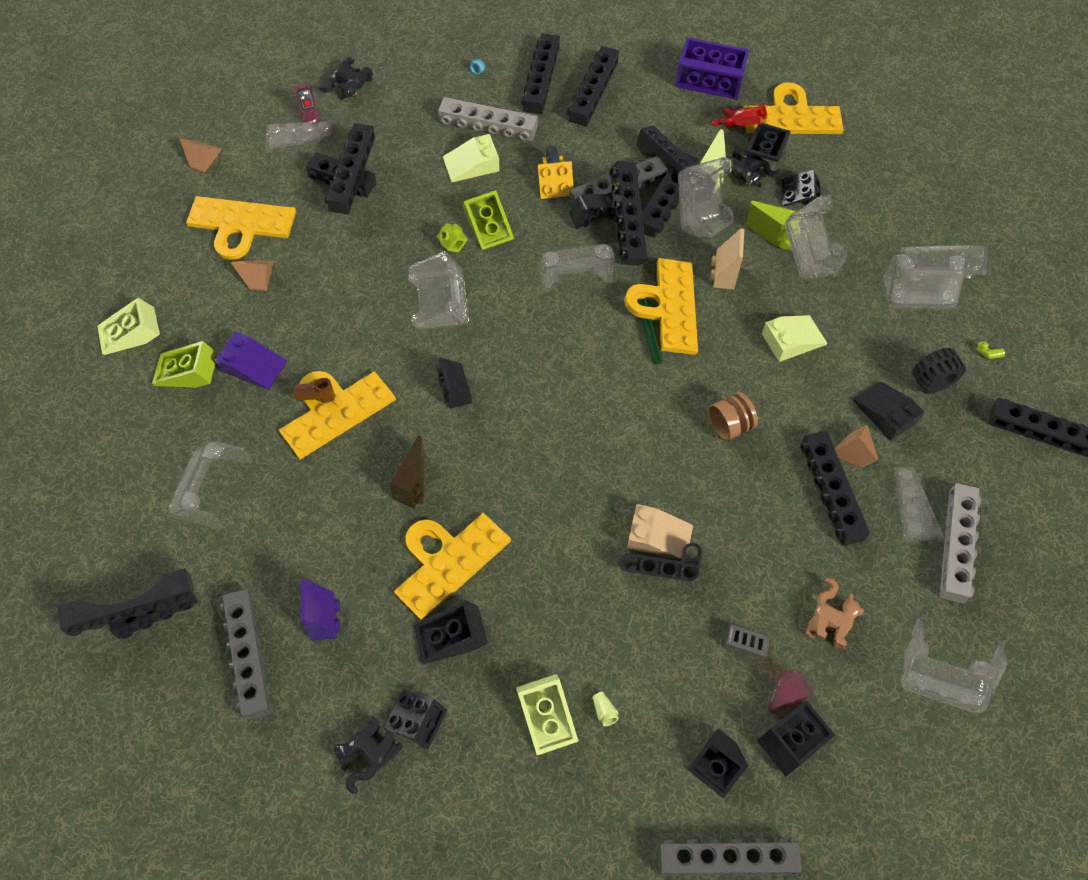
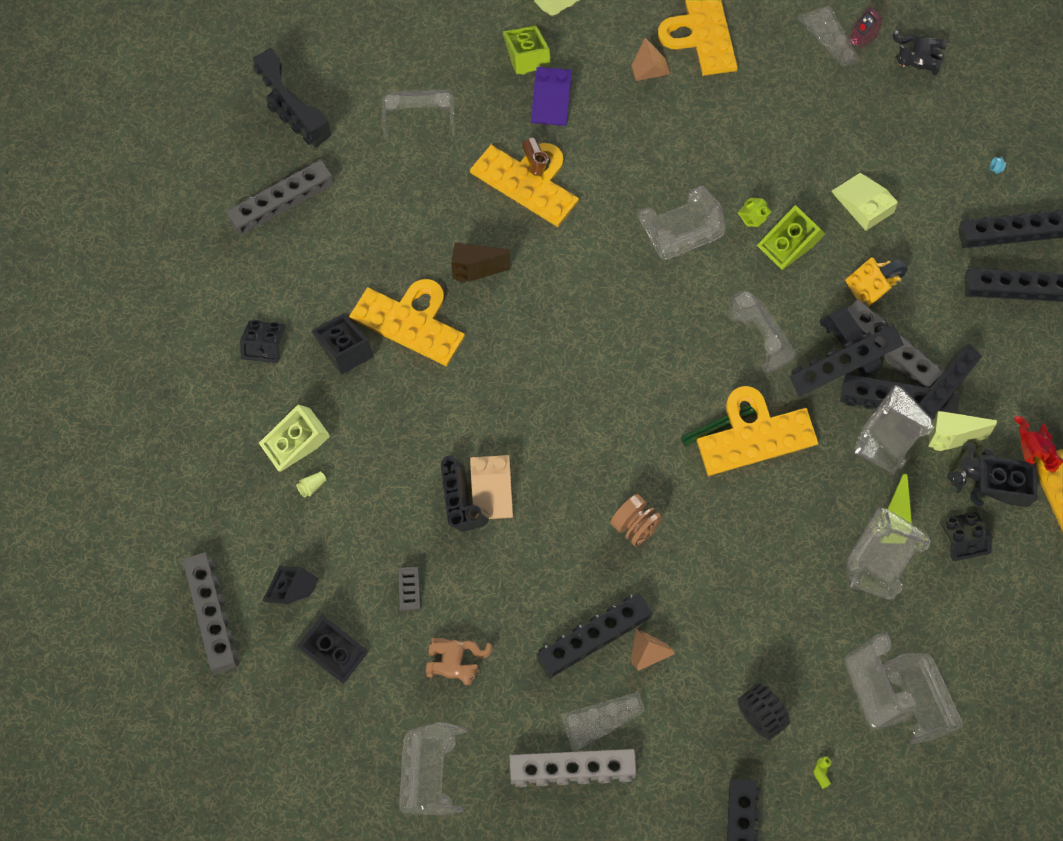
camera: 75 degrees right, 5 degrees up
(319, 611) = (325, 232): dark purple slope -> none
(323, 167) = (793, 79): black brick -> none
(350, 169) = (821, 95): black brick -> none
(371, 751) = (226, 316): black animal -> none
(453, 383) = (586, 265): black slope -> none
(488, 119) = (924, 157): light grey brick -> none
(728, 262) = (824, 476): tan slope -> none
(789, 690) = (370, 632): clear pink slope -> none
(792, 336) = (763, 564): yellowish green slope -> none
(889, 409) = (706, 674): black slope -> none

